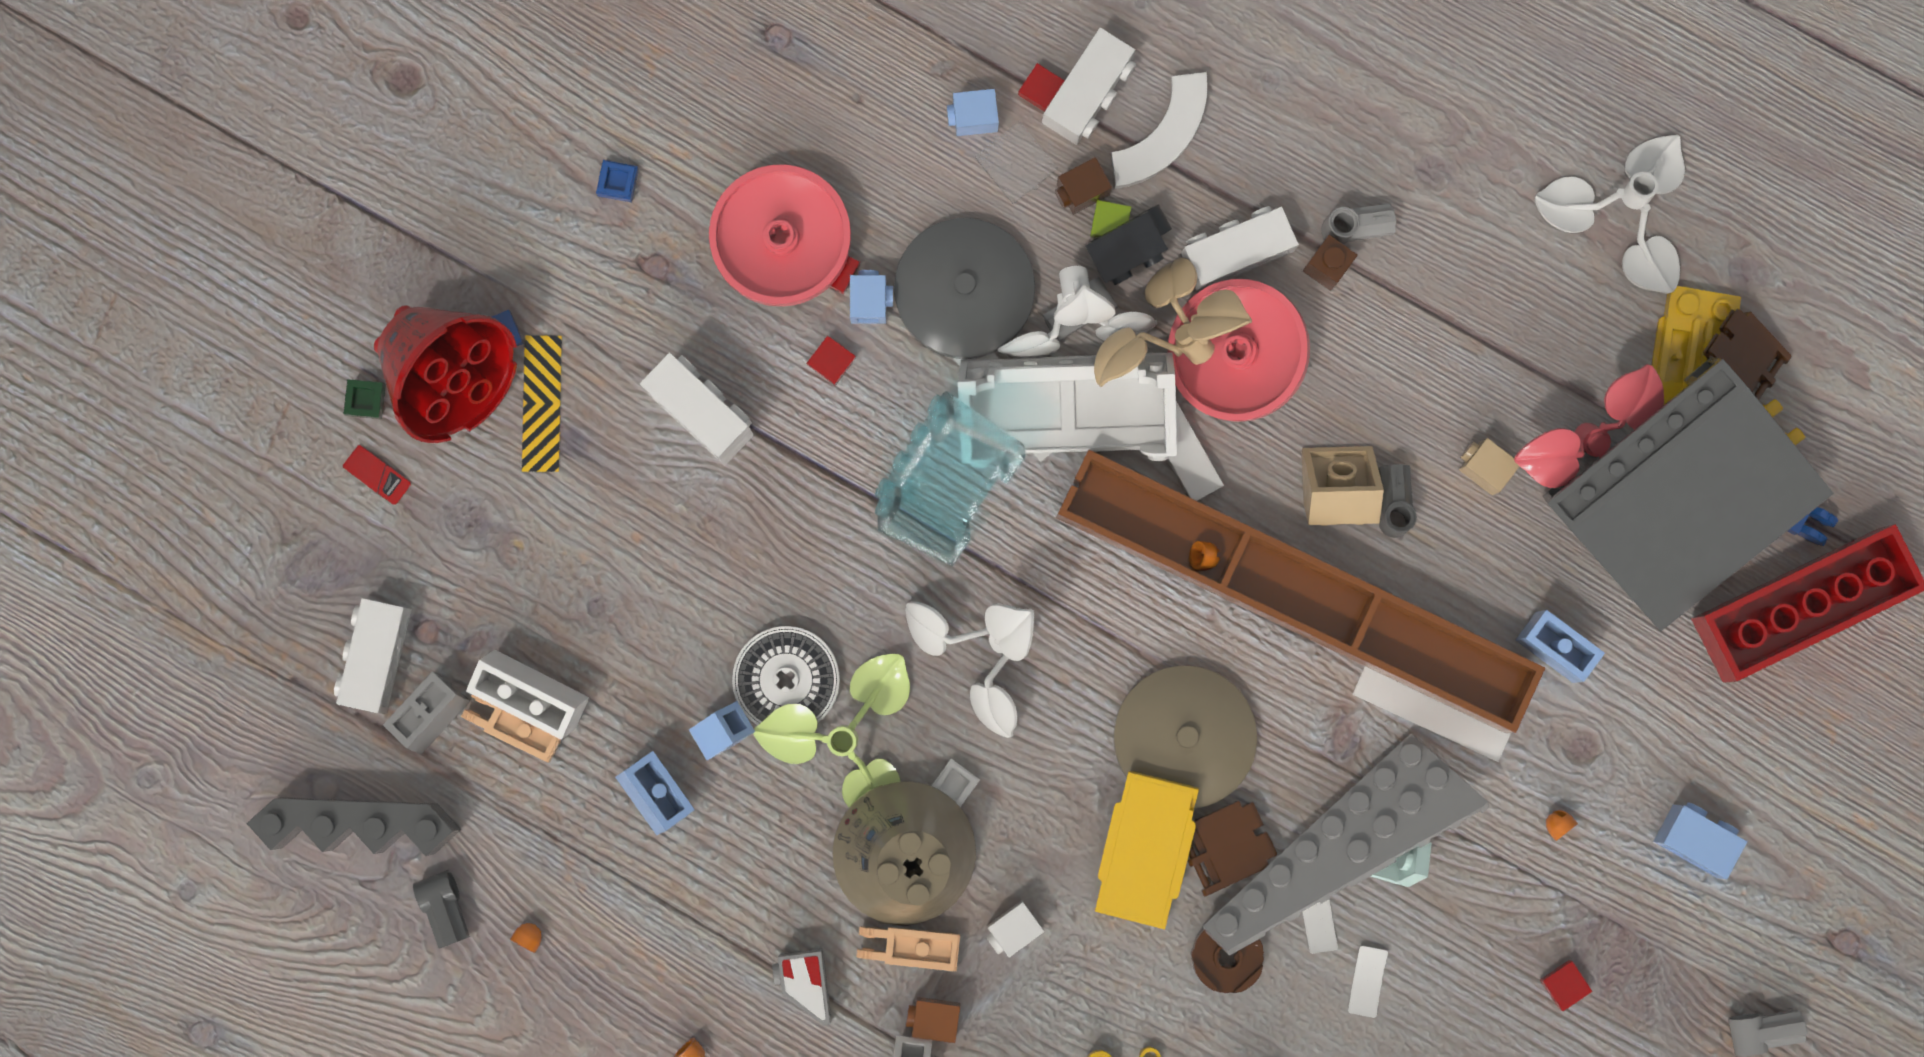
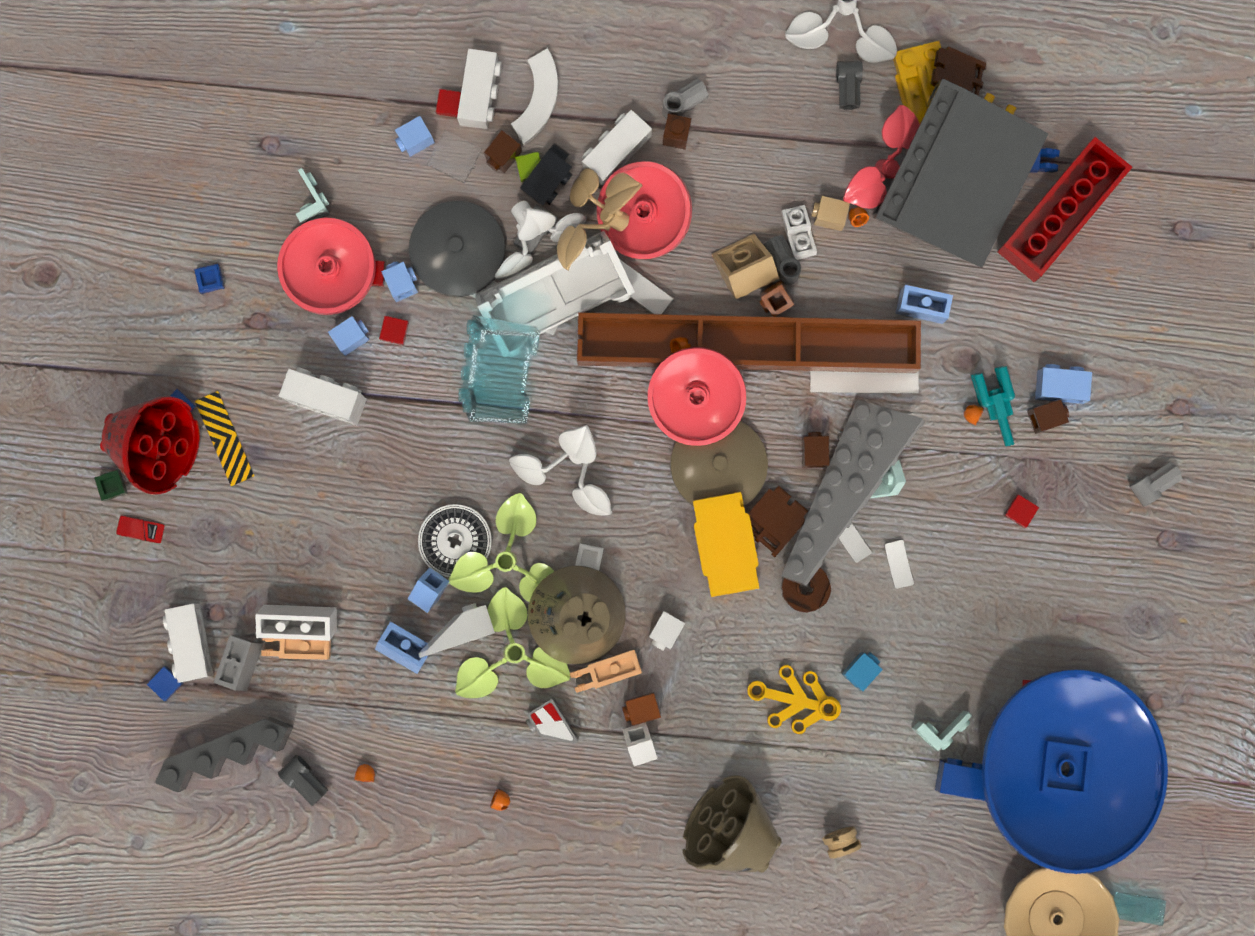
camera: 20 degrees left, 0 degrees up
(317, 695) = (164, 683): none -> blue tile
(741, 803) = (462, 628): none -> white slope
(769, 341) = (349, 335): none -> light blue brick
(790, 151) = (316, 210): none -> light aqua bracket
(807, 806) = (476, 677): none -> yellowish green plant
(1197, 634) = (697, 396): none -> coral dish
(1323, 777) = (815, 450): none -> reddish brown brick
(1362, 549) = (776, 299): none -> dark orange brick
(1433, 471) = (799, 232): none -> white slope
(1523, 487) = (859, 221): none -> orange hinge
(1595, 294) = (849, 77): none -> dark grey piece
(1600, 820) = (997, 400): none -> teal plant
(1661, 874) = (1048, 416): none -> reddish brown brick

